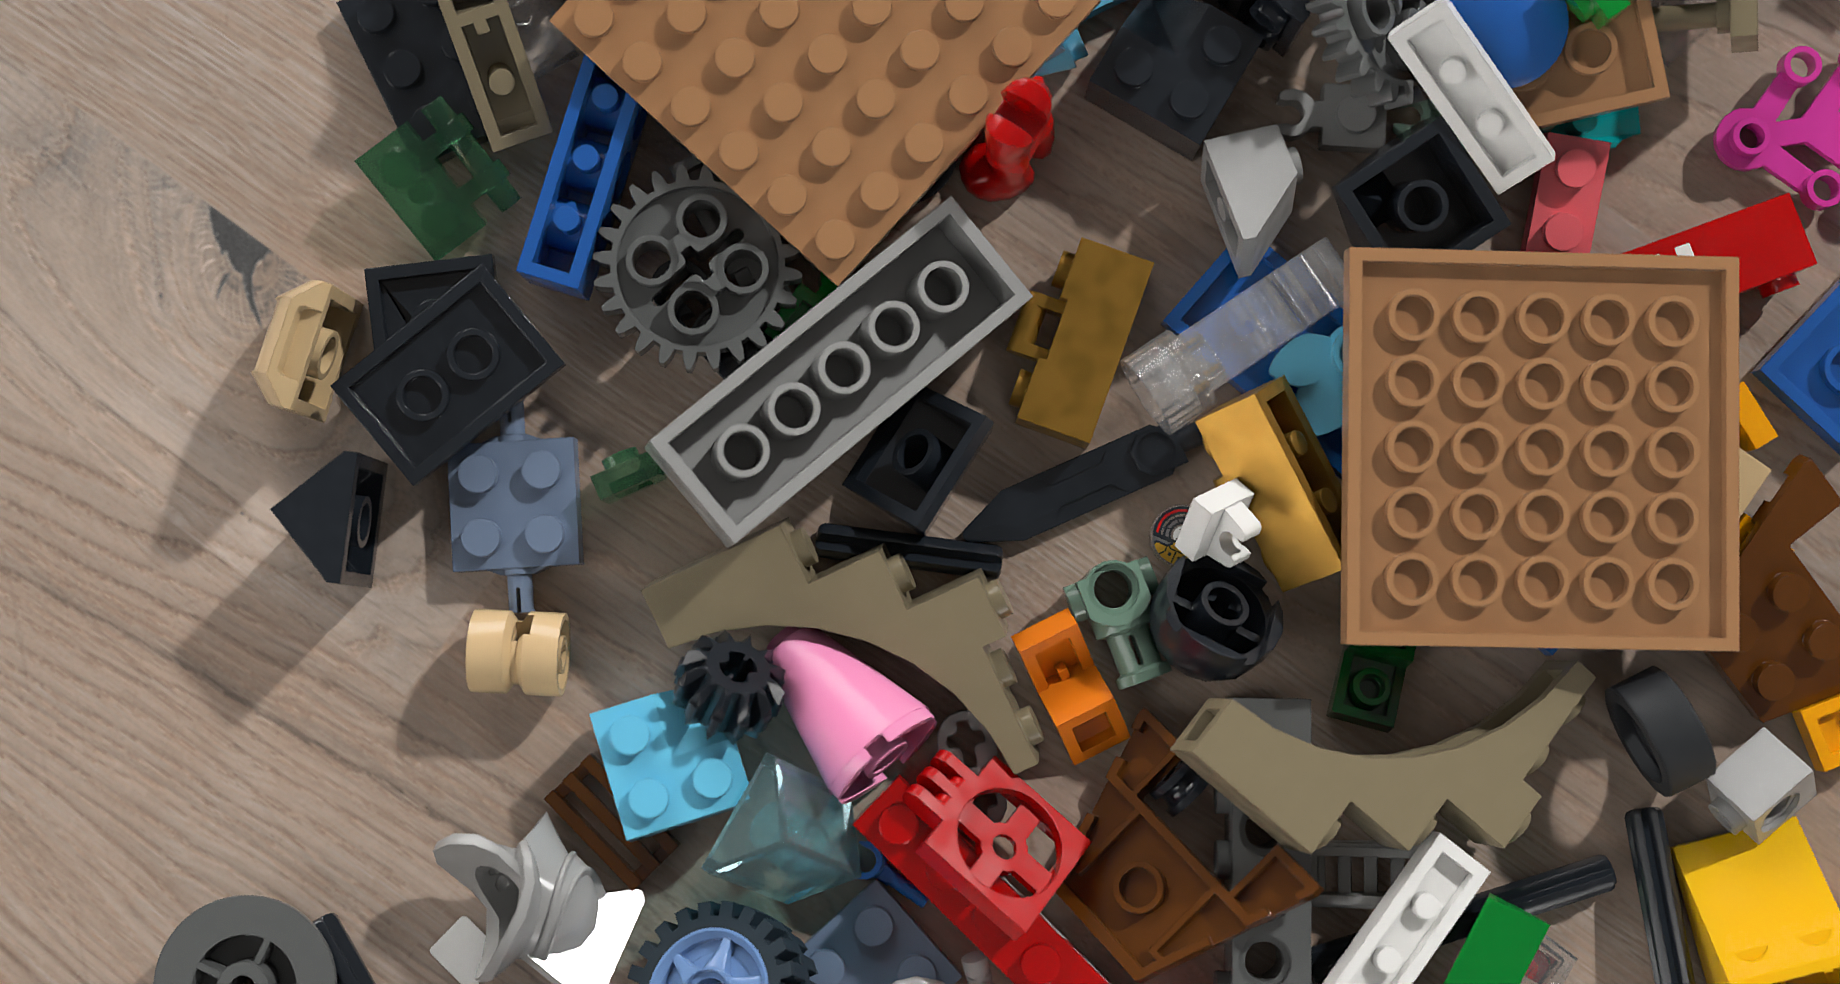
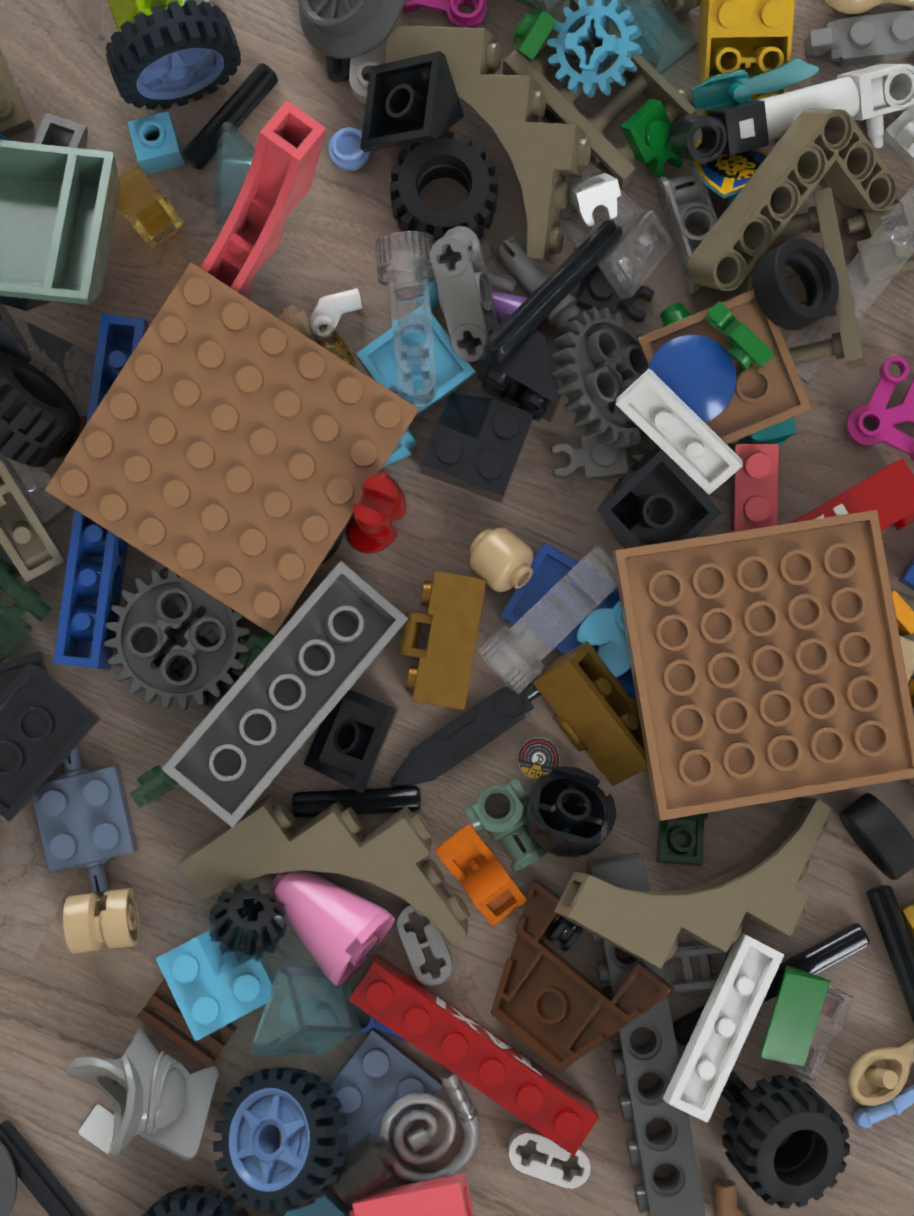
camera: 20 degrees left, 0 degrees up
(945, 803) = (415, 976): piece -> none
(1179, 238) = (501, 559): none -> tan head
(1217, 523) = (561, 750): white tile -> none
(1250, 190) = (543, 518): light grey slope -> none

